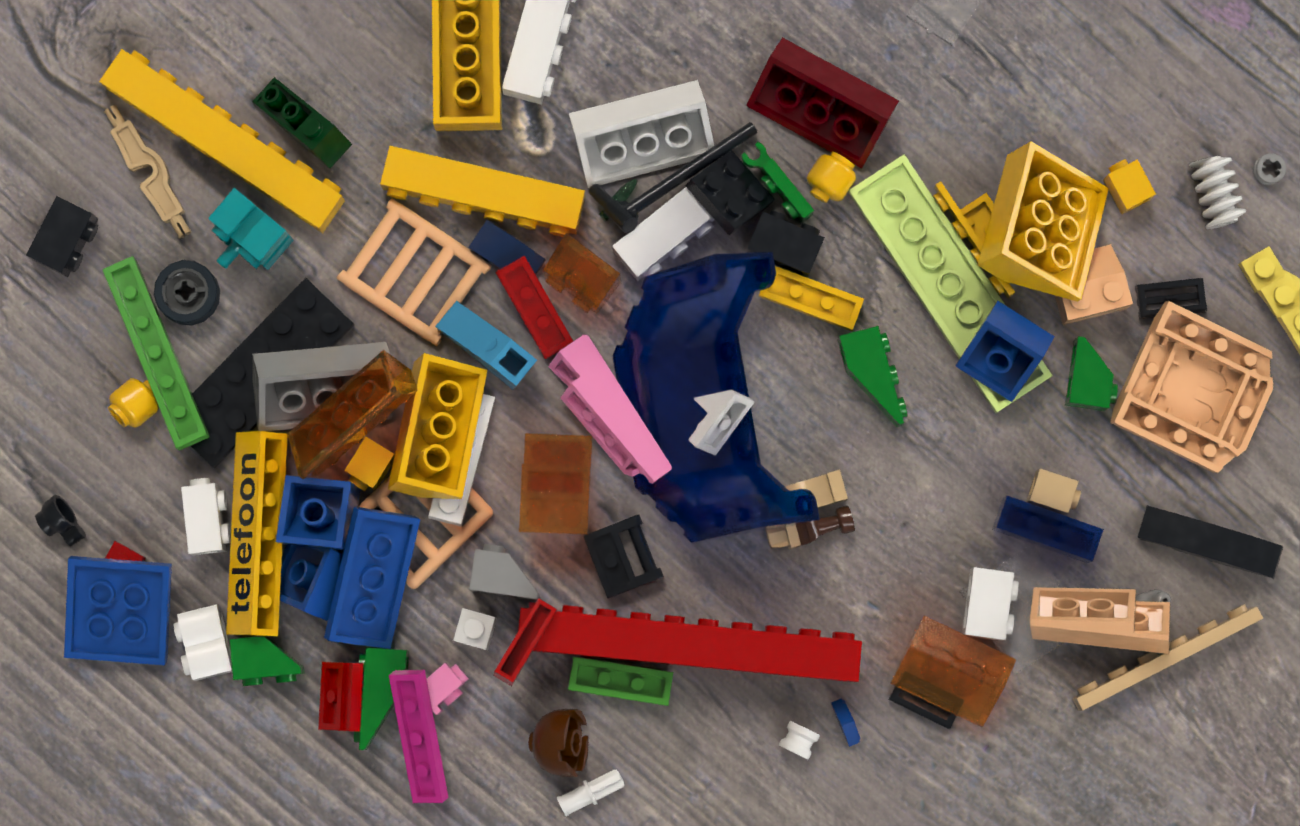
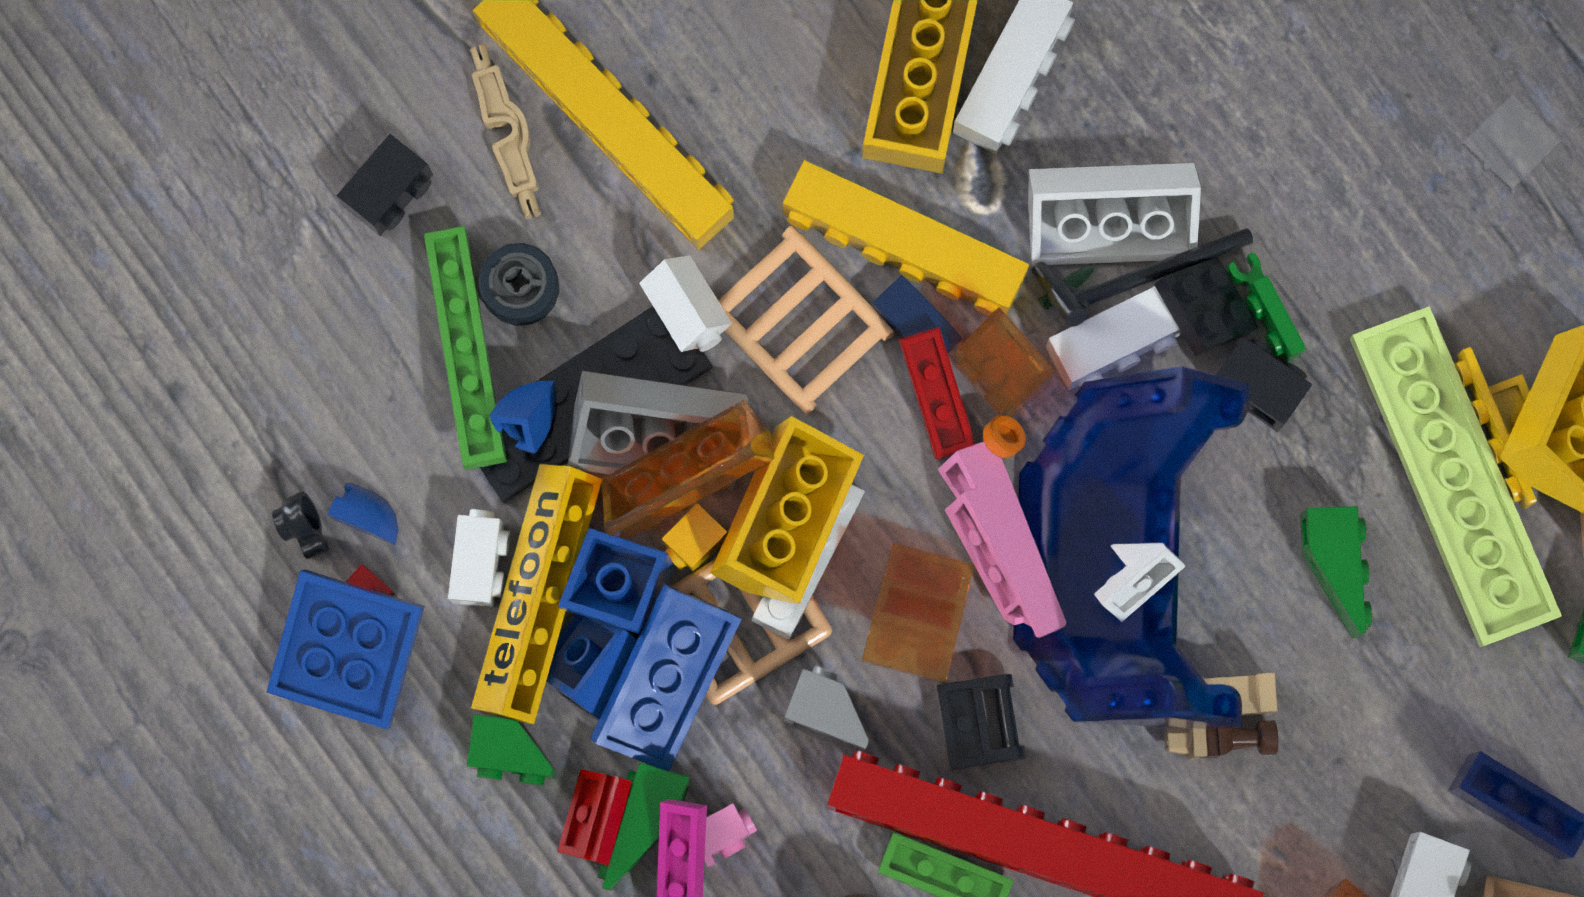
camera: 15 degrees right, 5 degrees down
(108, 499) = (365, 512): none -> blue brick
(133, 403) = (423, 402): yellow head -> none
(204, 642) = (442, 713): white brick -> none
(216, 396) = (526, 414): none -> blue brick
(248, 232) = (610, 225): teal brick -> none
(302, 122) = (705, 113): dark green slope -> none
(322, 281) = (686, 304): none -> white brick
(475, 629) = (778, 770): white brick -> none
(486, 344) = (869, 425): dark azure slope -> none
(524, 642) = (839, 798): red piece -> none
(594, 330) = (1004, 436): none -> orange tile
(813, 299) = (1282, 458): yellow plate -> none
(822, 102) = (1340, 223): dark red slope -> none
(831, 177) = (1334, 314): yellow head -> none
(1005, 351) = (1510, 572): blue slope -> none
(1053, 492) = (1537, 759): tan brick -> none

